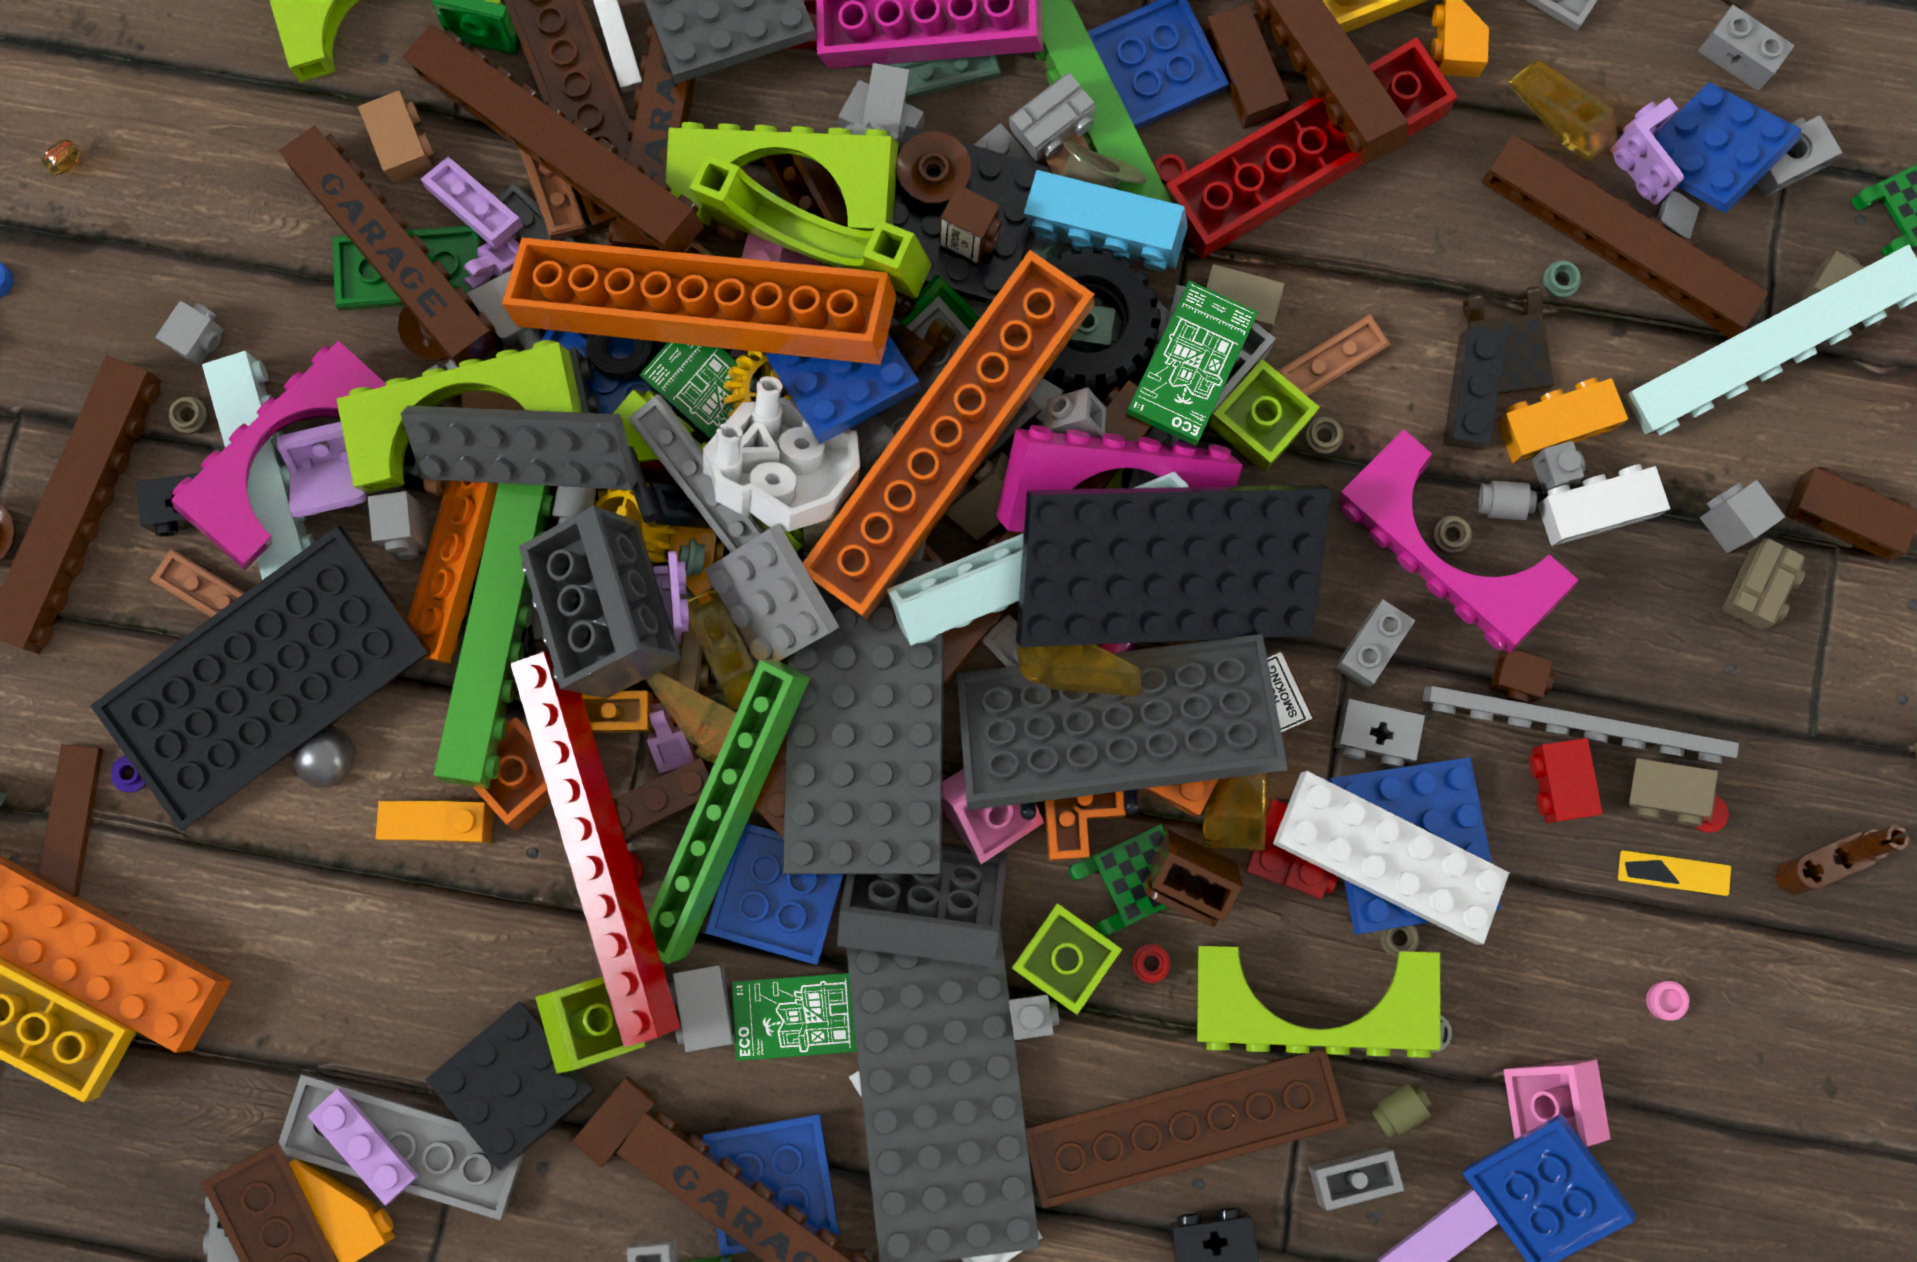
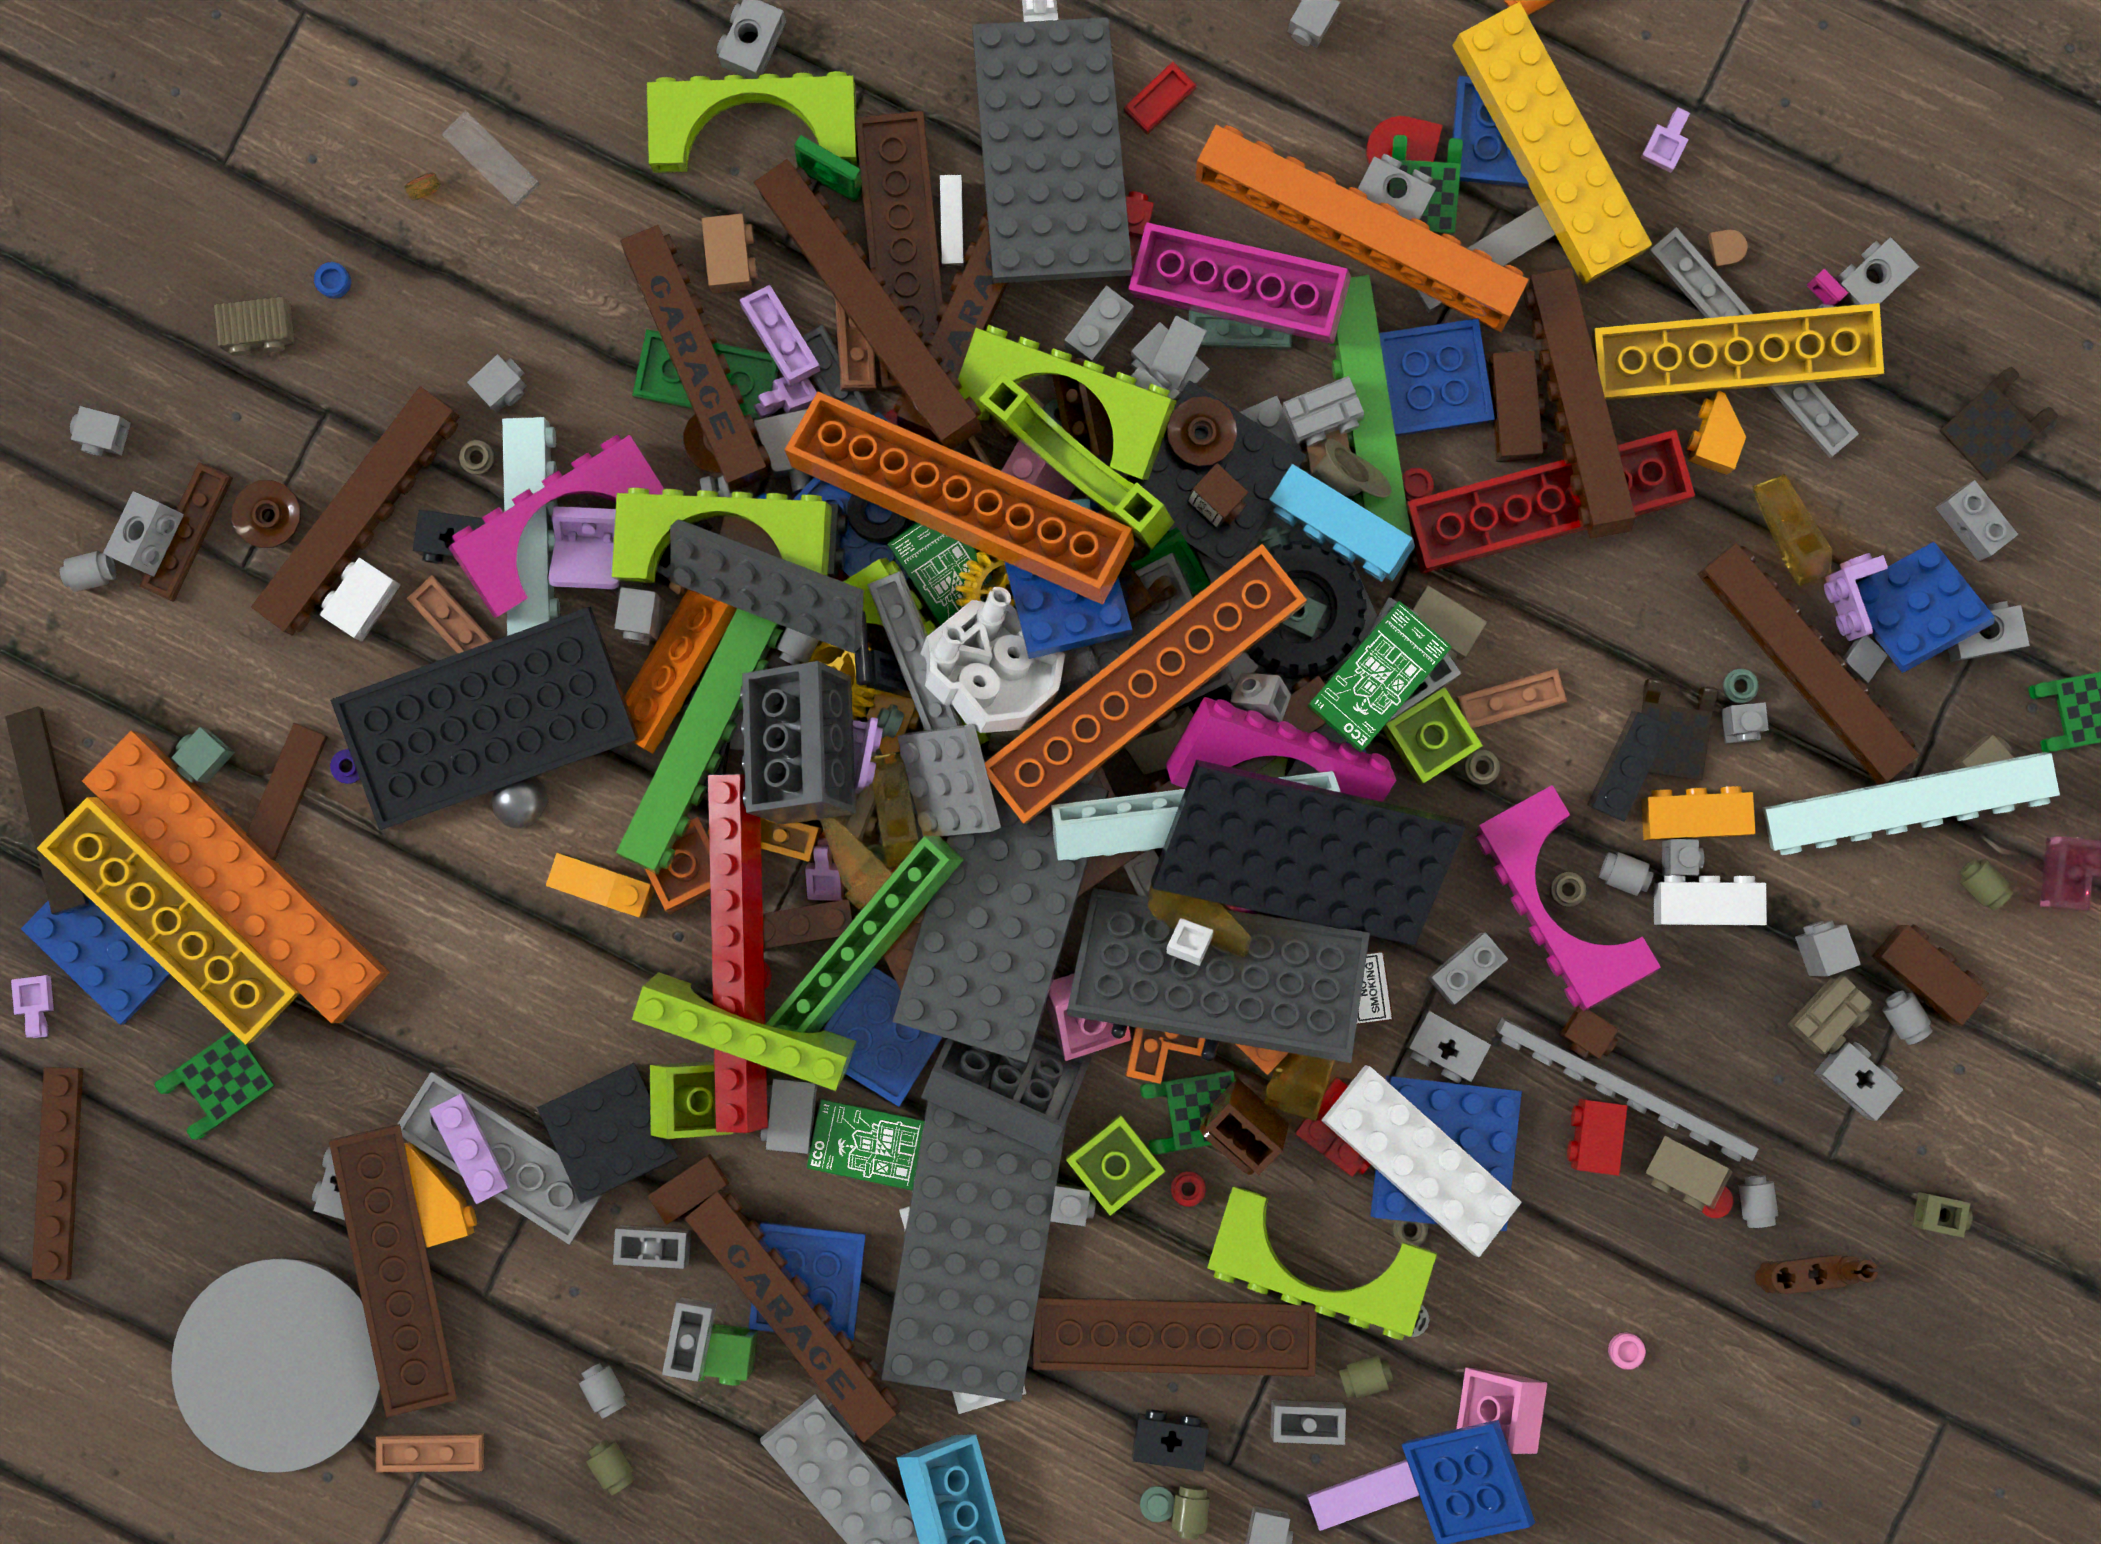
camera: 15 degrees right, 5 degrees up
(74, 1153) = (221, 1080): none -> green flag
(99, 594) = (359, 599): none -> white brick
(127, 113) = (490, 159): none -> clear tile
(550, 926) = (676, 1009): none -> lime arch
(590, 1196) = (652, 1246): none -> light grey brick
(800, 96) = (1099, 326): none -> light grey brick
(1076, 694) = (1189, 941): none -> white tile
(1578, 312) = (1744, 722): none -> light grey brick
(1674, 873) = (1669, 1243): yellow sticker -> none
(1755, 800) = (1758, 1201): none -> light grey brick
(1795, 644) = (1868, 1099): none -> light grey brick
(1844, 564) = (1907, 1017): none -> light grey brick
(1877, 405) = (1985, 883): none -> olive brick

